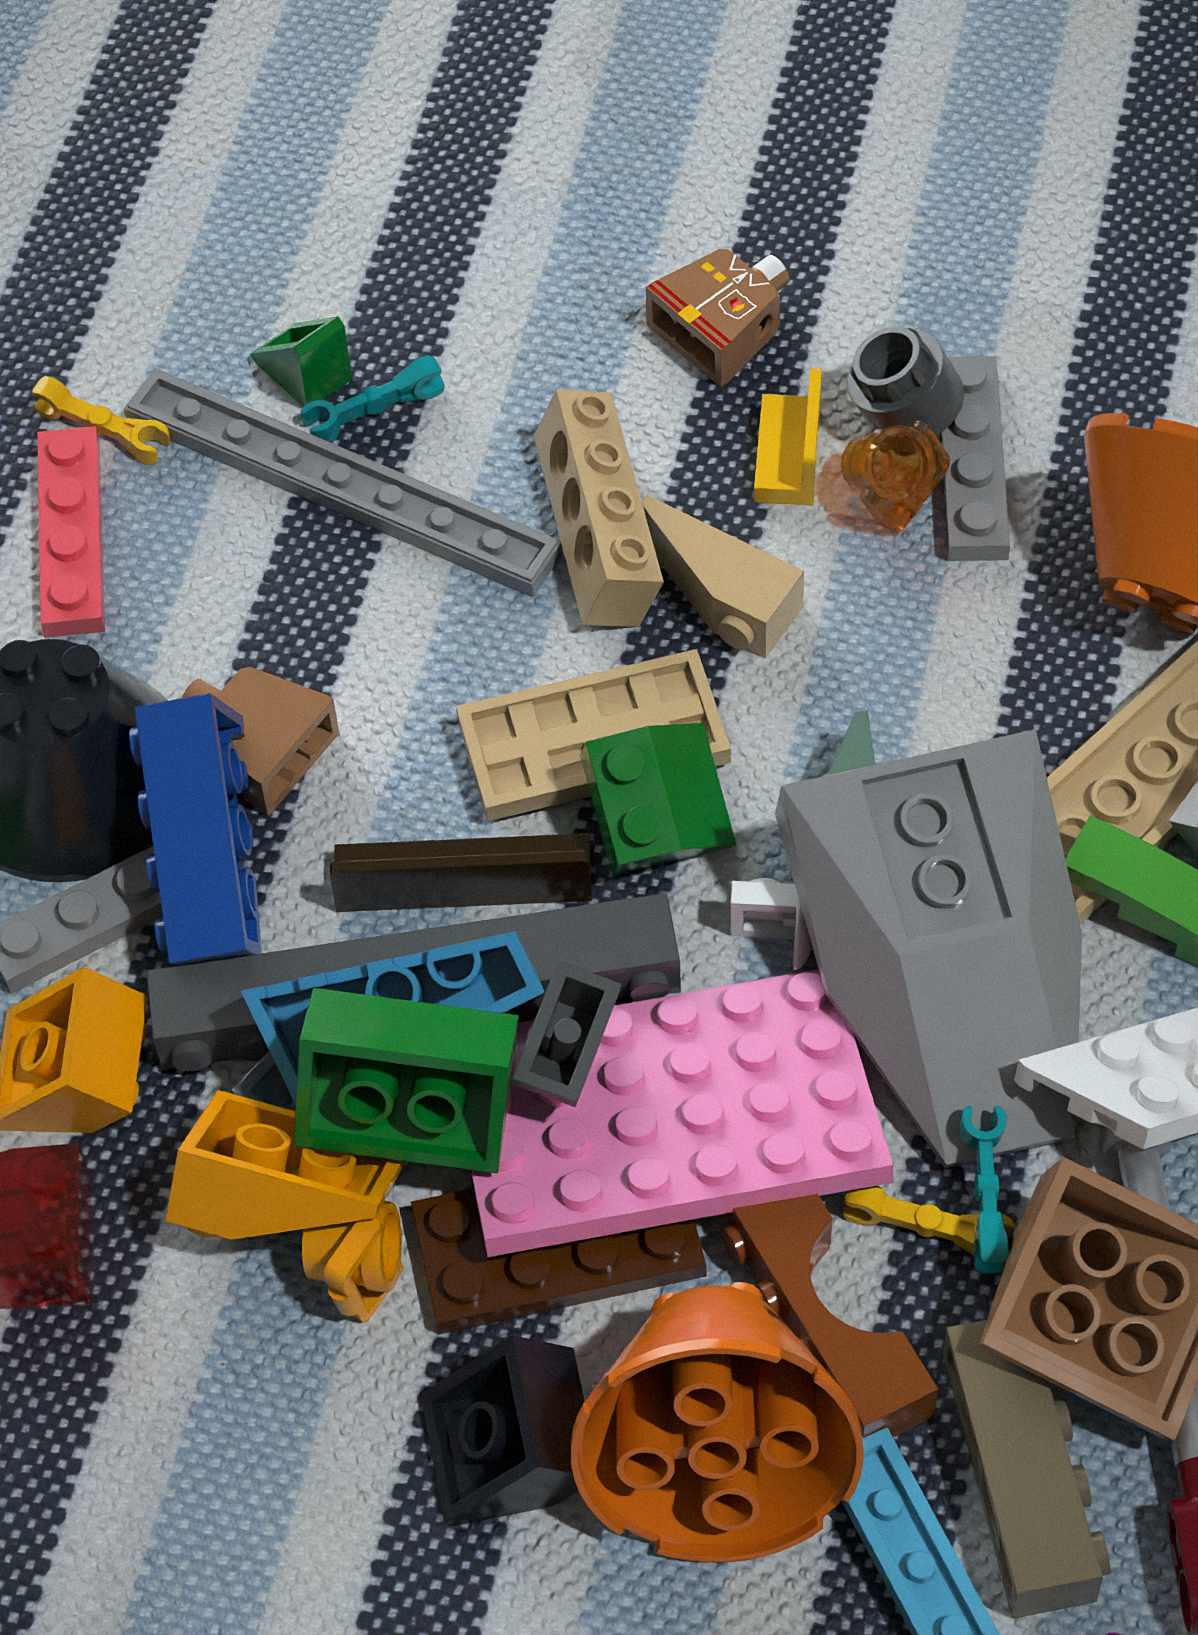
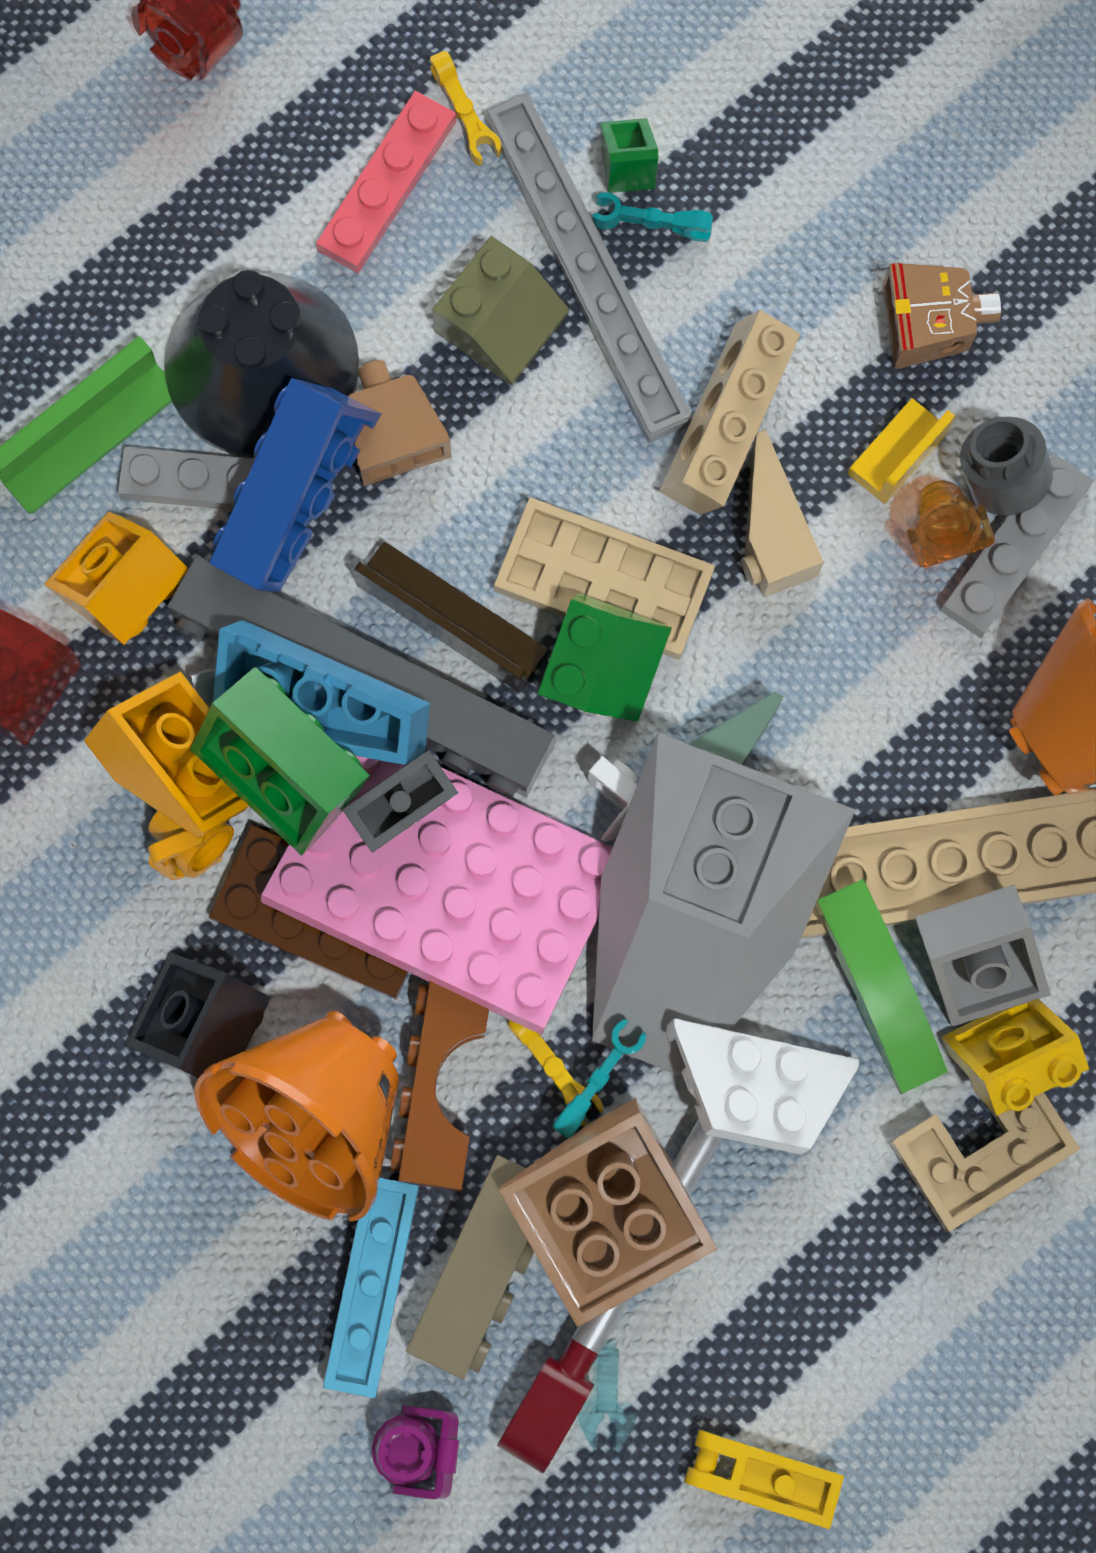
camera: 30 degrees right, 20 degrees up
(285, 566) = (499, 311): none -> olive slope

